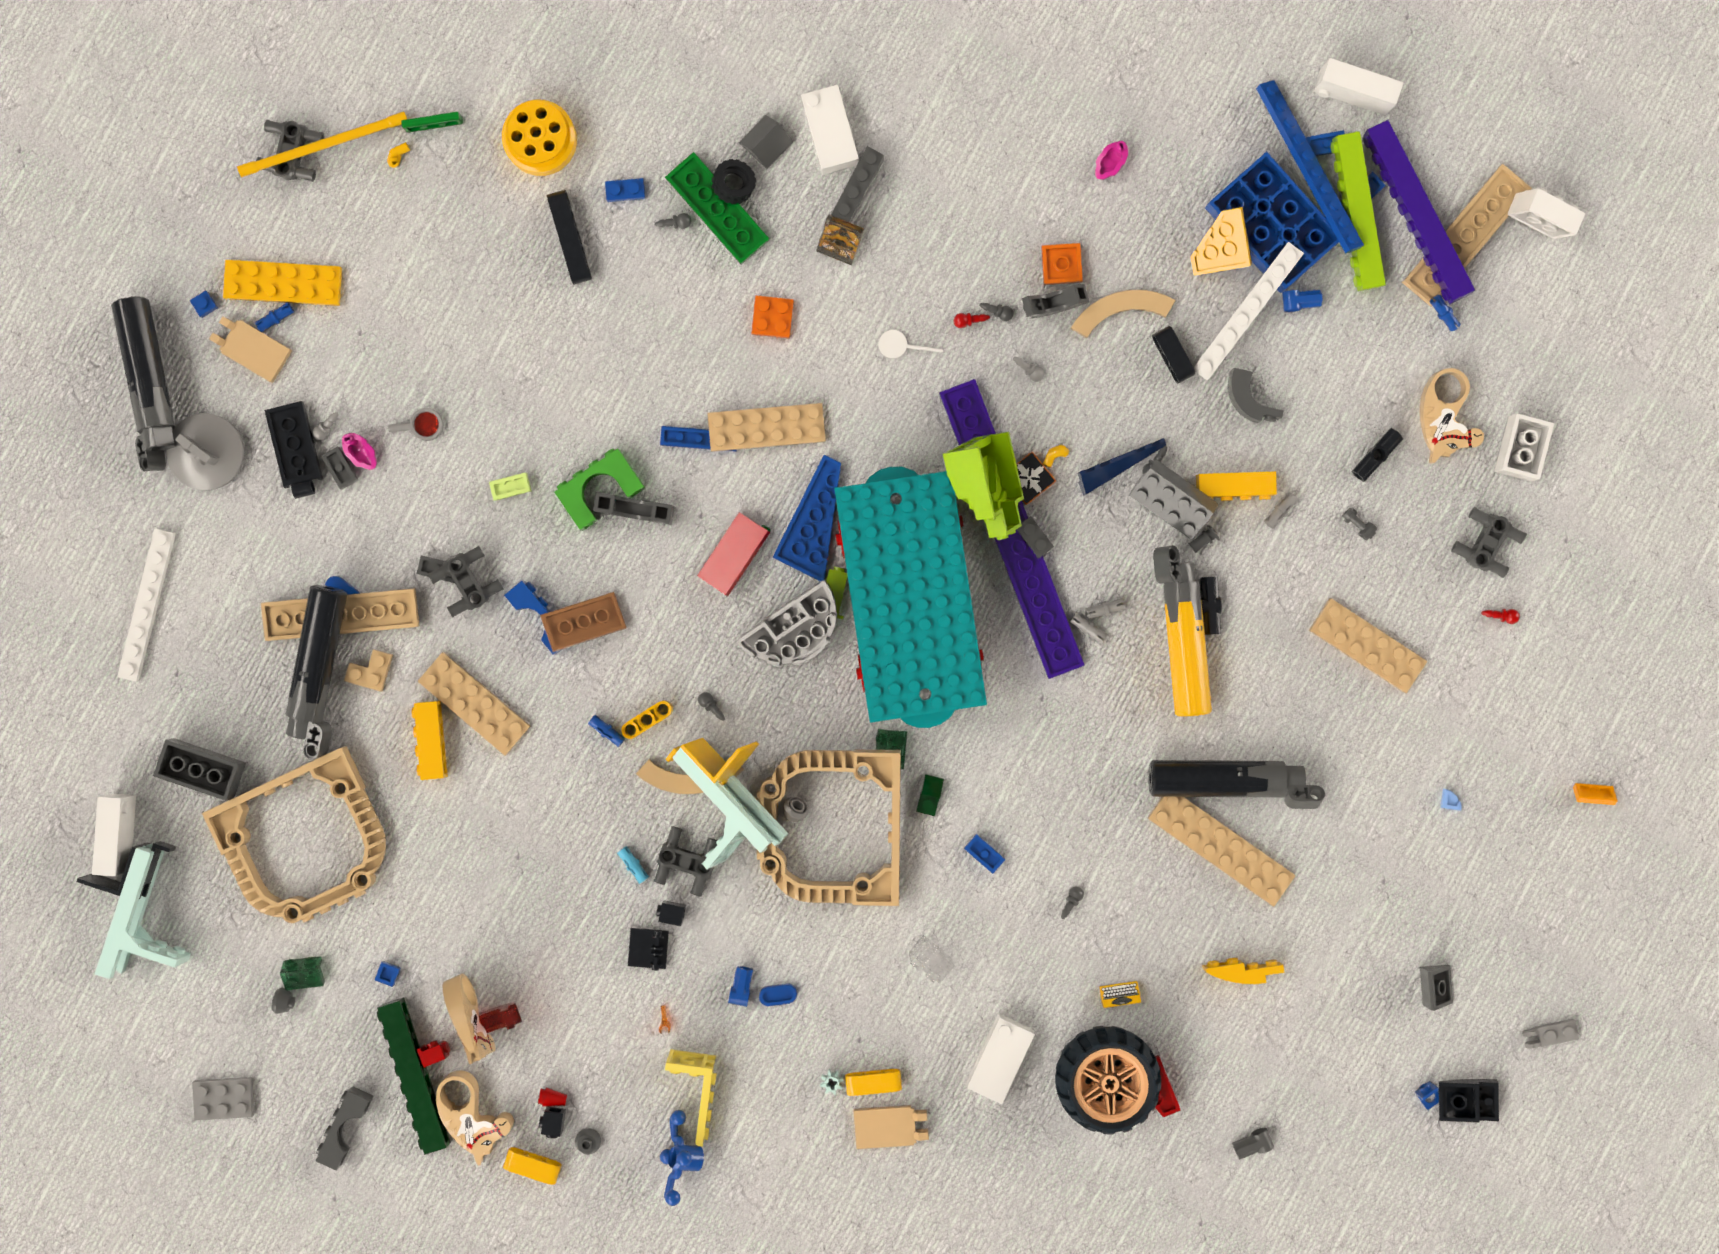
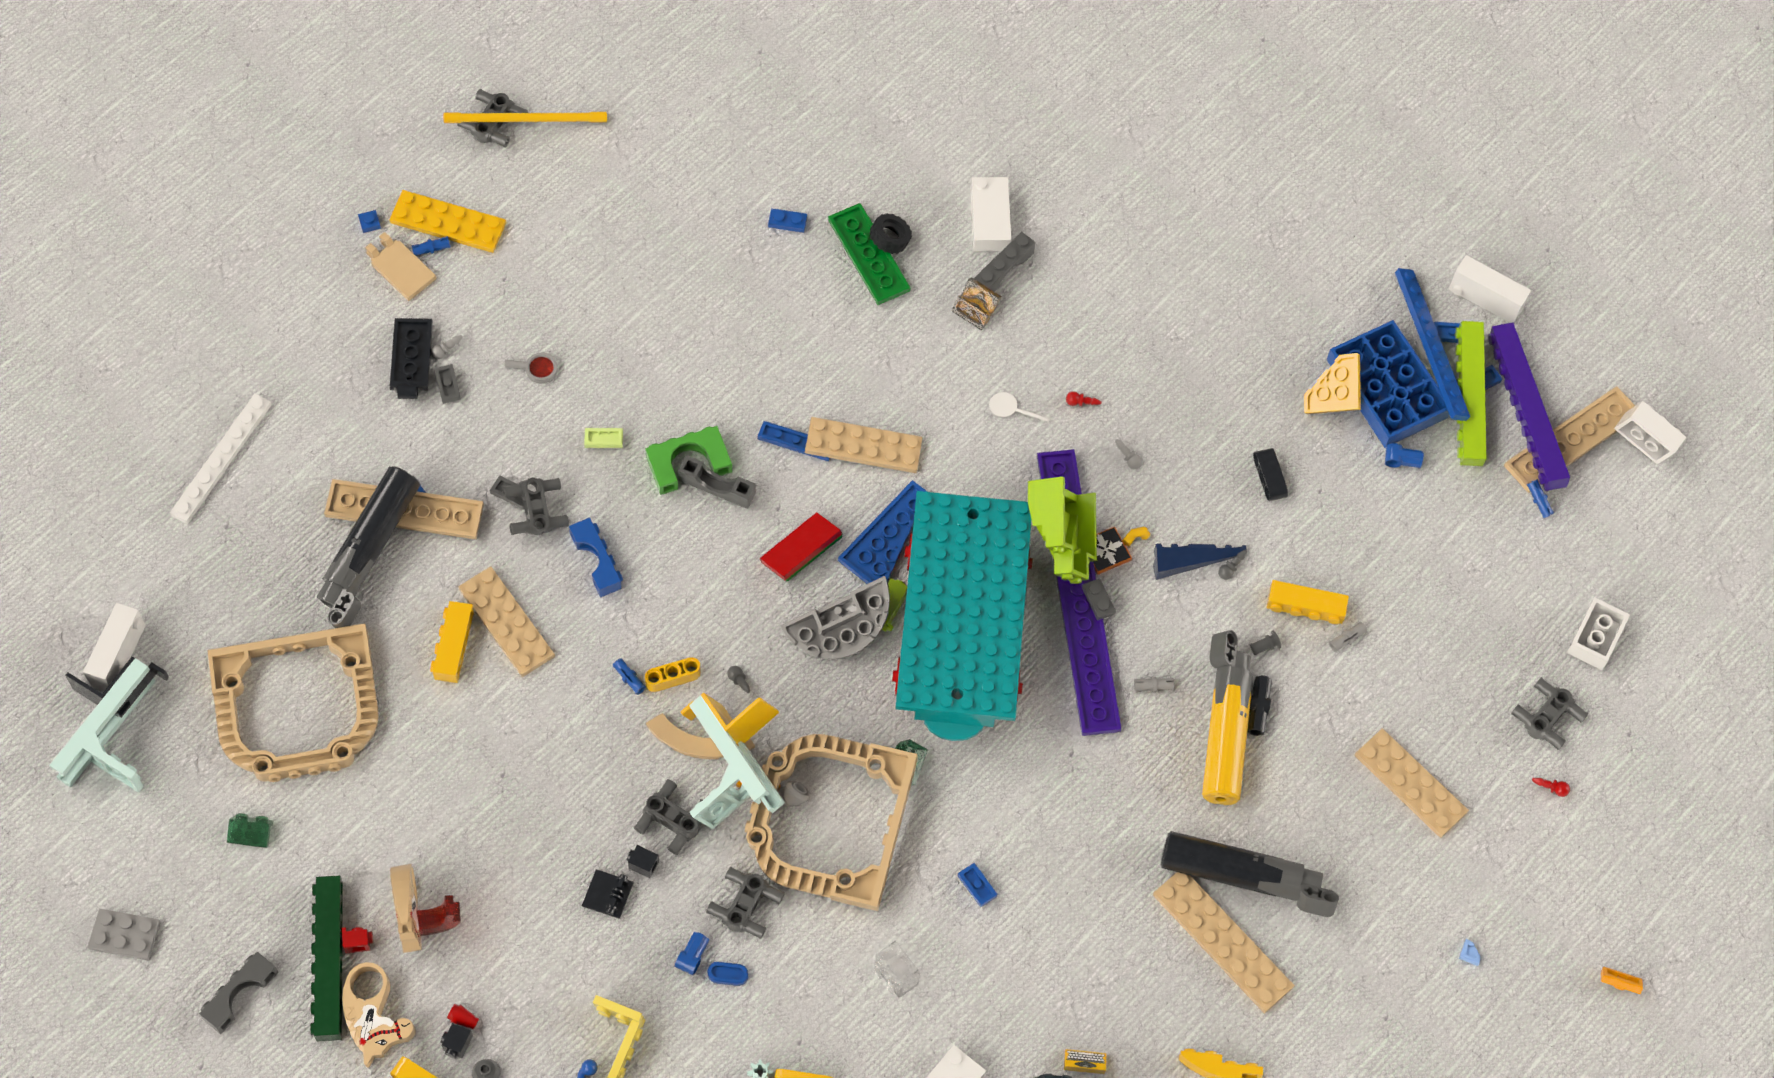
camera: 10 degrees right, 25 degrees down
(145, 381) = (294, 267): black piece -> none
(199, 769) = (219, 610): dark grey brick -> none
(206, 452) = (326, 341): light grey bracket -> none
(282, 1001) = (220, 850): dark grey cone -> none
(359, 451) = (471, 373): dark pink arm -> none
(372, 676) = (417, 572): tan plate -> none
(387, 973) = (335, 851): blue plate -> none
(396, 153) = (586, 144): yellow arm -> none
(432, 122) = (628, 125): green tile -> none
(543, 161) = (720, 177): yellow wheel -> none
(569, 237) = (724, 245): black beam -> none
(583, 621) = (637, 569): medium nougat tile -> none
(633, 864) = (616, 808): medium azure pin -> none
(664, 1020) = (603, 968): clear orange hand -> none
(682, 220) = (833, 256): dark grey bar -> none
(766, 141) = (930, 212): dark grey slope -> none
(772, 317) = (895, 355): orange plate -> none
(776, 926) = (745, 902): none -> dark grey piece
(930, 795) = (935, 817): dark green slope -> none
(1004, 313) = (1115, 403): dark grey bar -> none
(1055, 302) = (1166, 403): dark grey arch -> none
(1061, 264) = (1180, 373): orange plate -> none
(1075, 894) = (1060, 951): dark grey bar -> none
(1088, 628) = (1133, 698): light grey pin -> none
(1111, 160) = (1246, 298): dark pink arm -> none
(1121, 302) = (1229, 419): tan tile -> none
(1173, 499) = (1242, 596): brick -> none
(1244, 403) = (1331, 532): dark grey arch -> none
(1248, 310) = (1348, 450): white plate -> none
(1367, 530) = (1429, 675): dark grey bar -> none
(1369, 463) = (1460, 602): black piece -> none
(1438, 421) = (1518, 598): tan animal -> none

